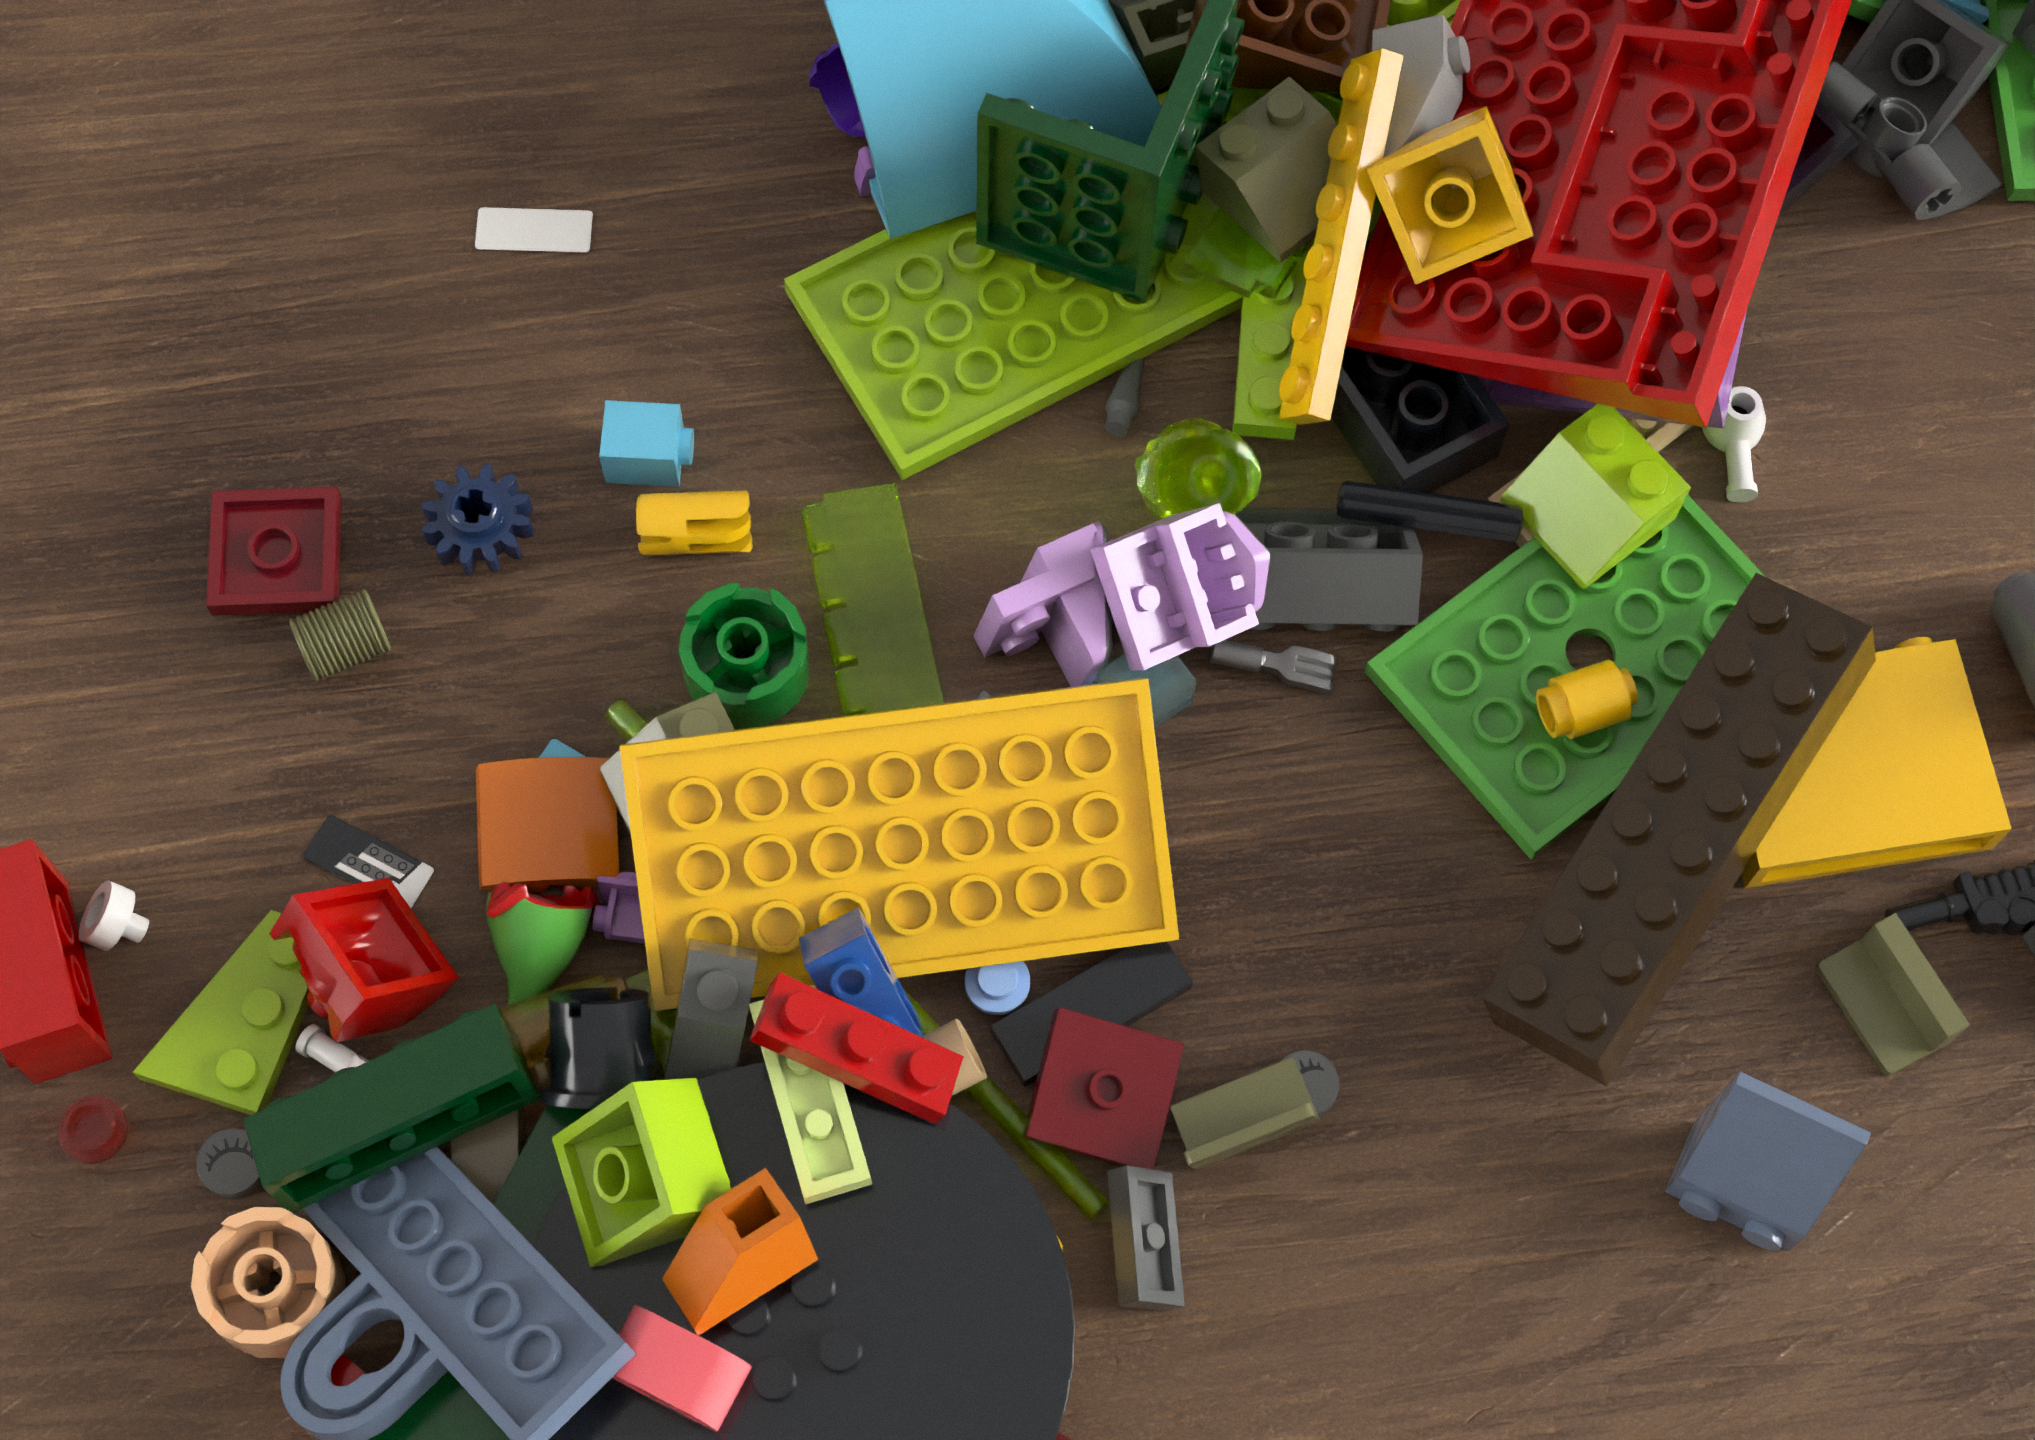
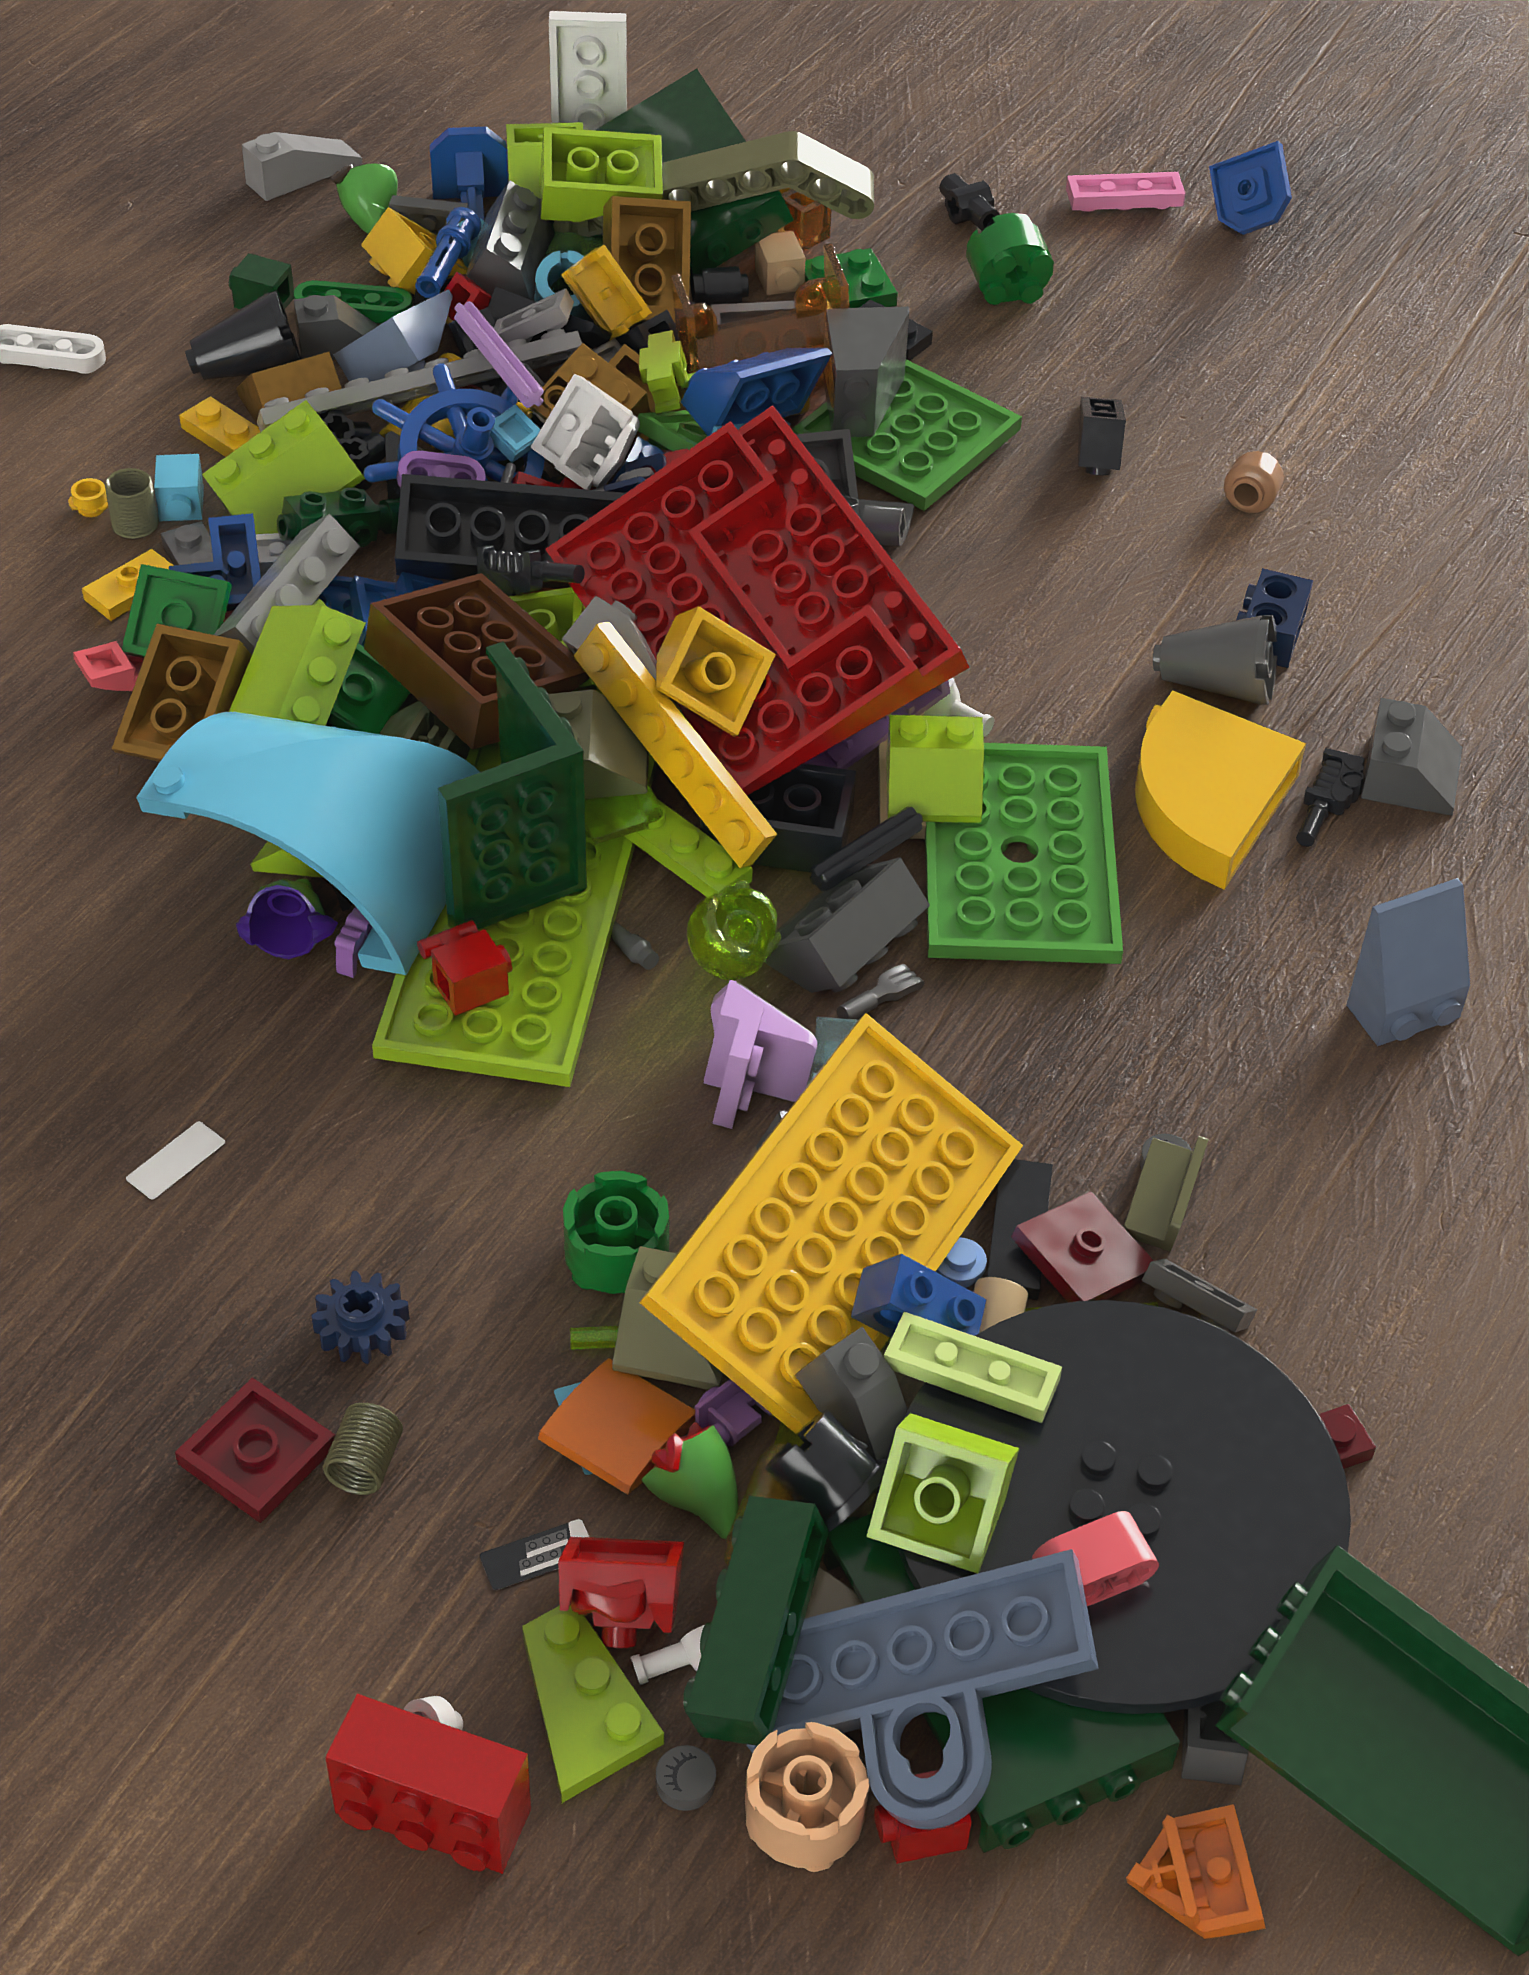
camera: 50 degrees left, 20 degrees down
(93, 1129) = (578, 1849): clear red plate -> none
(644, 443) = (404, 1193): medium azure brick -> none
(694, 523) = (488, 1205): yellow arm -> none
(738, 1252) = (1051, 1464): orange slope -> none
(857, 1048) = (968, 1315): red plate -> none
(881, 597) = (620, 1143): clear neon green windscreen -> none
(931, 285) = (467, 966): none -> red brick
(1182, 583) = (807, 971): lavender piece -> none
(1586, 700) = (1057, 858): yellow brick -> none
(1680, 828) = (1181, 871): dark brown brick -> none
(1892, 996) = (1351, 863): olive panel -> none

